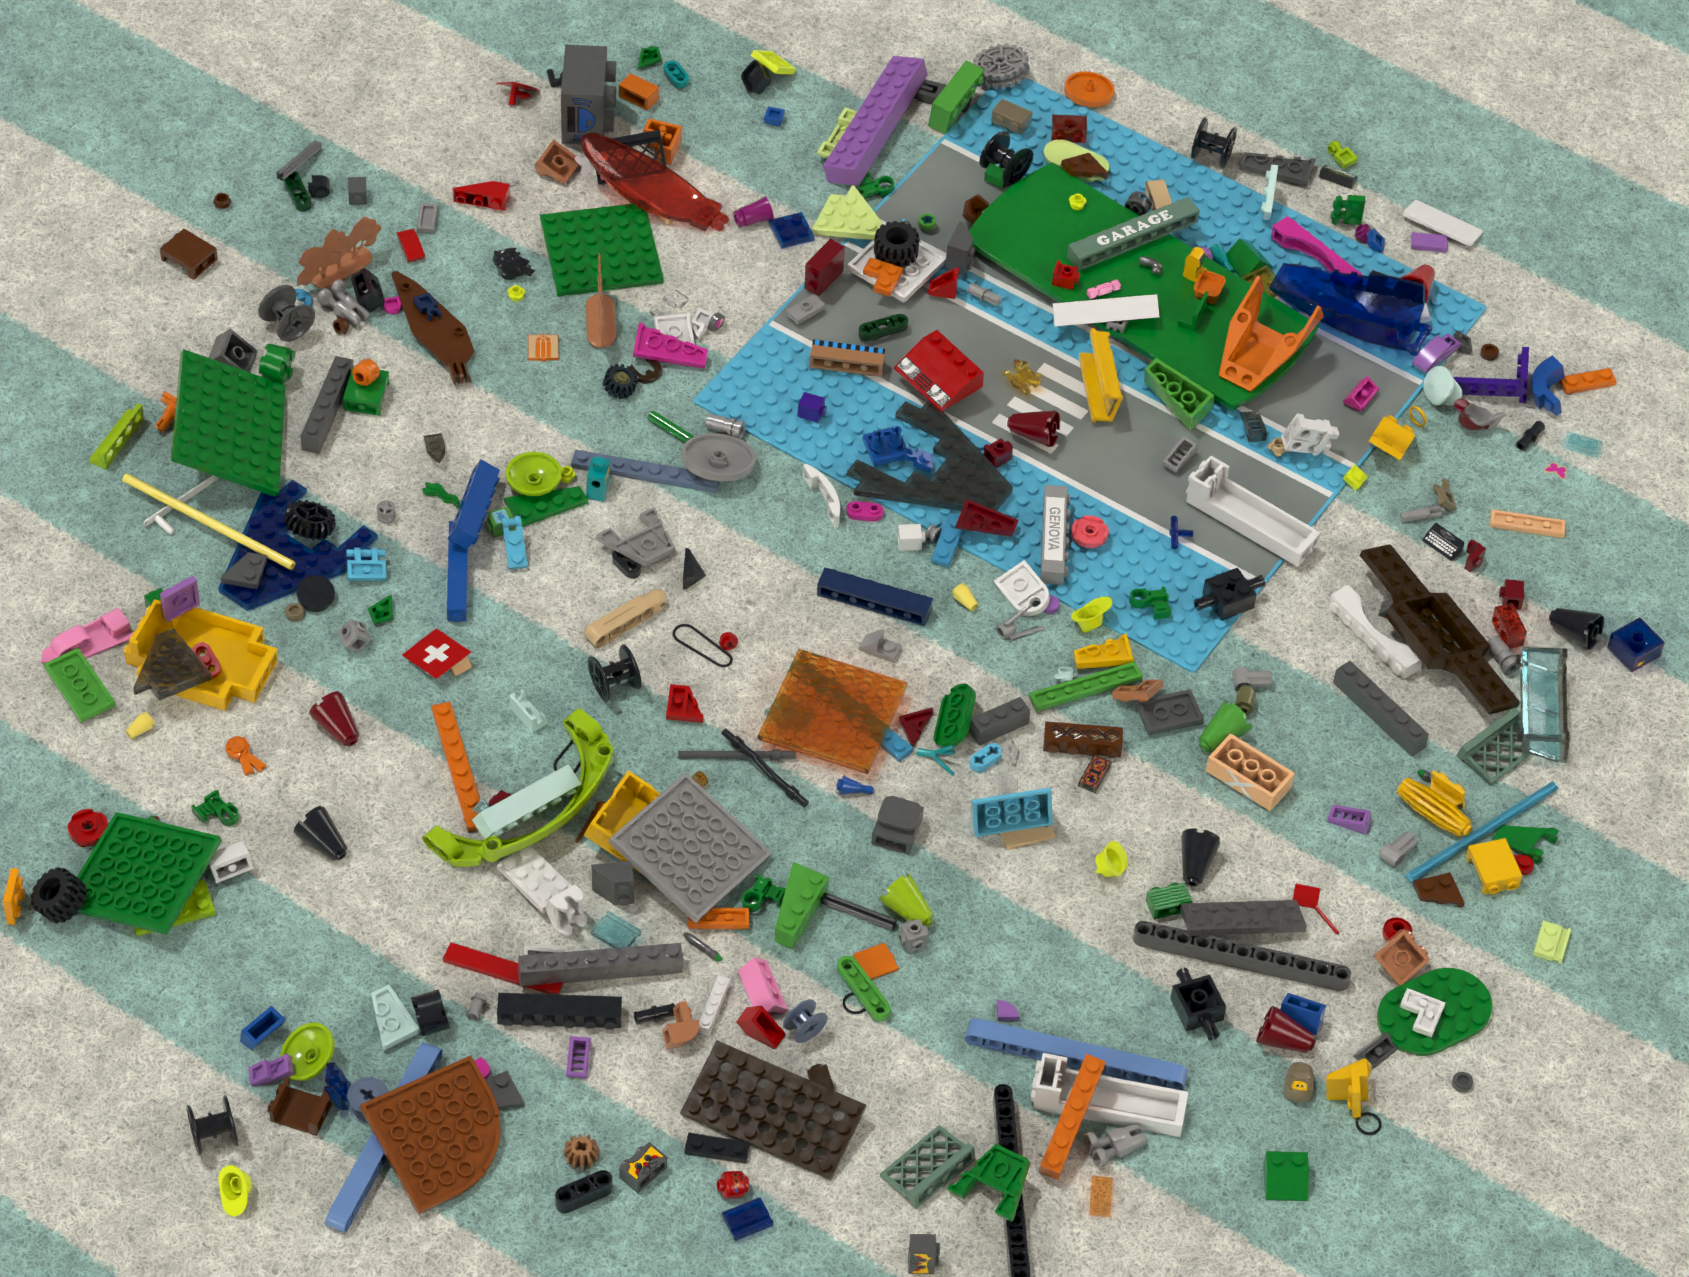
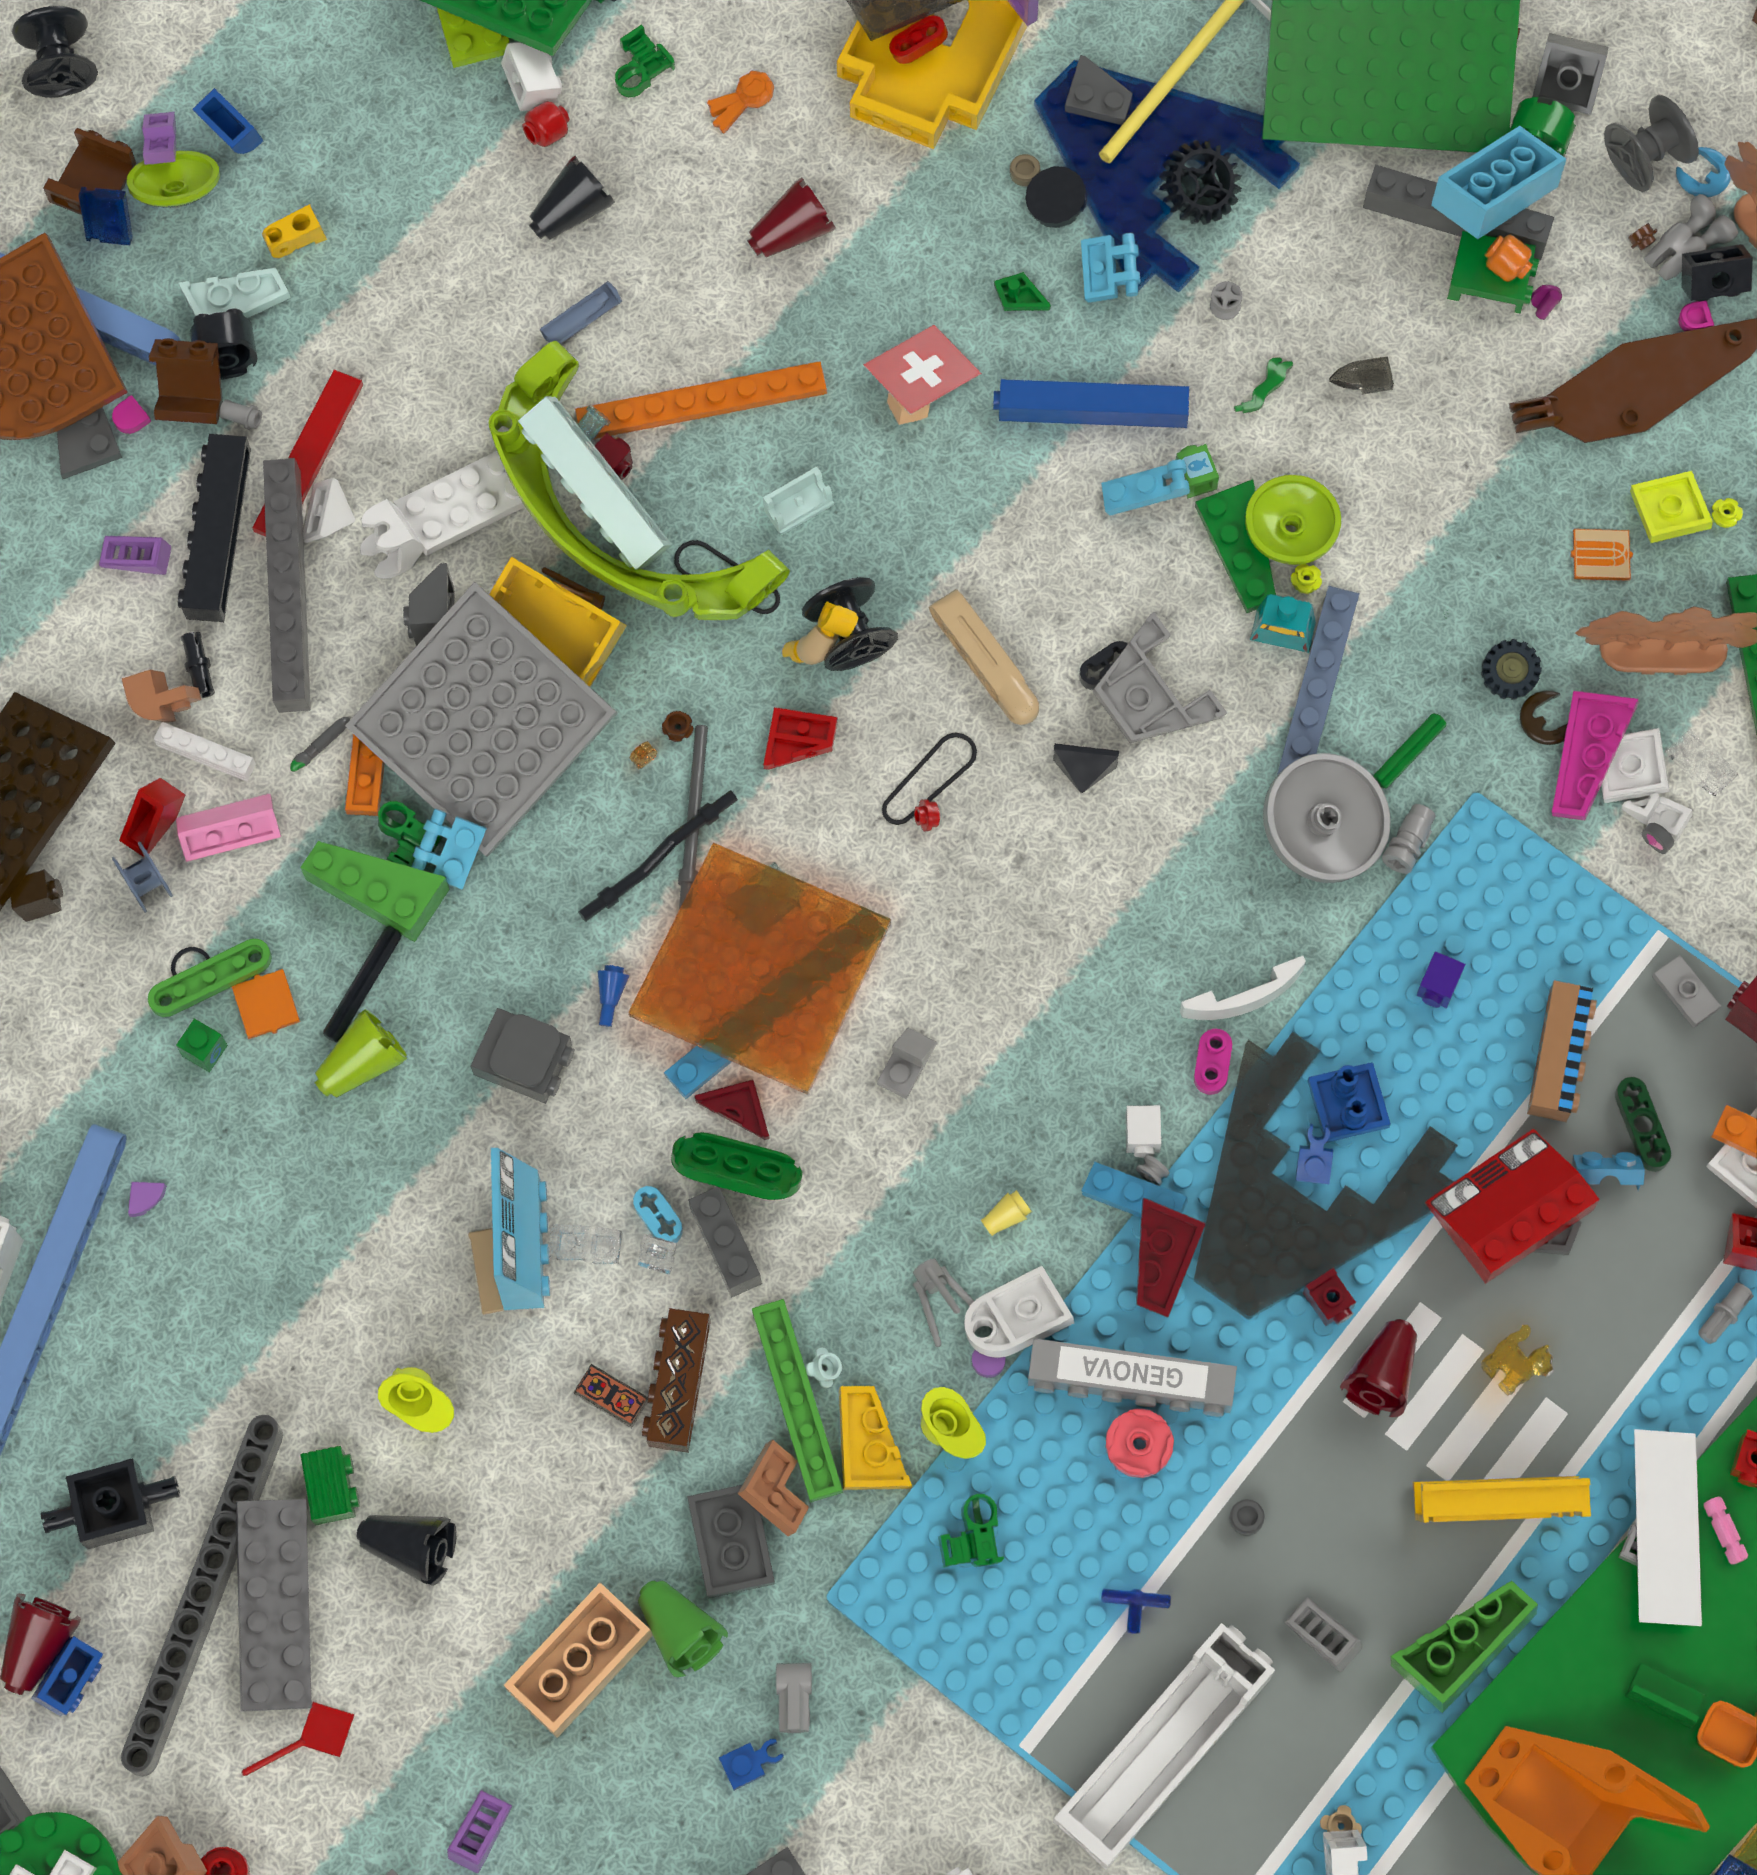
camera: 100 degrees right, 20 degrees up
(263, 854) = (546, 124): none -> red head
(321, 370) = (1498, 182): none -> medium azure brick
(343, 986) = (293, 232): none -> yellow leg
(354, 635) = (961, 248): light grey brick -> none
(363, 1091) = (91, 261): sand blue piece -> none
(385, 364) = (1545, 300): none -> magenta plate
(400, 828) = (581, 314): none -> sand blue piece
(427, 304) = (1688, 366): dark blue plate -> none
(461, 1031) = (187, 381): none -> reddish brown panel
(474, 505) = (1218, 421): blue brick -> none
(514, 315) = (1671, 506): none -> neon yellow plate
(615, 931) = (356, 615): clear light blue plate -> none
(630, 684) = (814, 646): none -> piece
(679, 760) = (677, 718): none -> reddish brown plate
(771, 866) = (459, 849): none -> medium azure plate
(874, 596) = (1011, 1059): dark blue brick -> none
(909, 985) = (201, 1045): none -> green brick
(910, 335) = (1623, 1165): none -> dark azure piece
(913, 935) = (296, 1070): light grey brick -> none
(933, 754) = (669, 1130): teal plant -> none
(1122, 488) = (1246, 1517): none -> dark grey tile
(1229, 593) = (999, 1683): black brick -> none
(1246, 699) = (745, 1677): olive brick -> none
(1251, 433) = (1368, 1788): clear smoke slope -> none
(1289, 701) = (744, 1764): none -> blue plate

